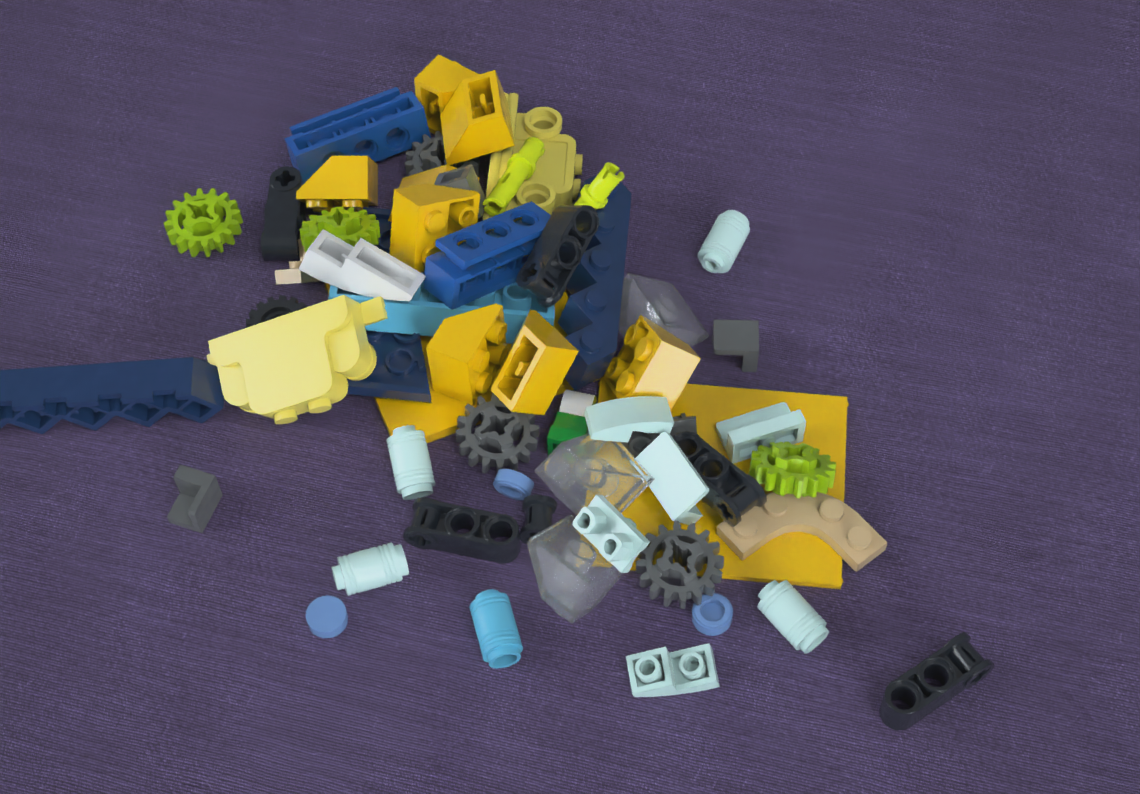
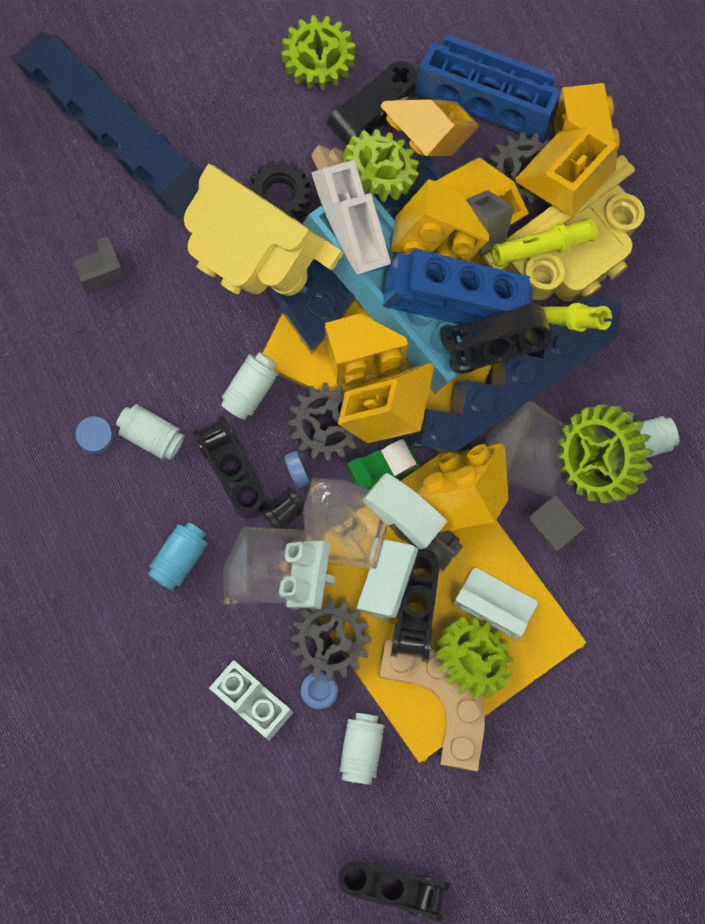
camera: 45 degrees right, 20 degrees up
(712, 281) = (587, 447): none -> lime gear

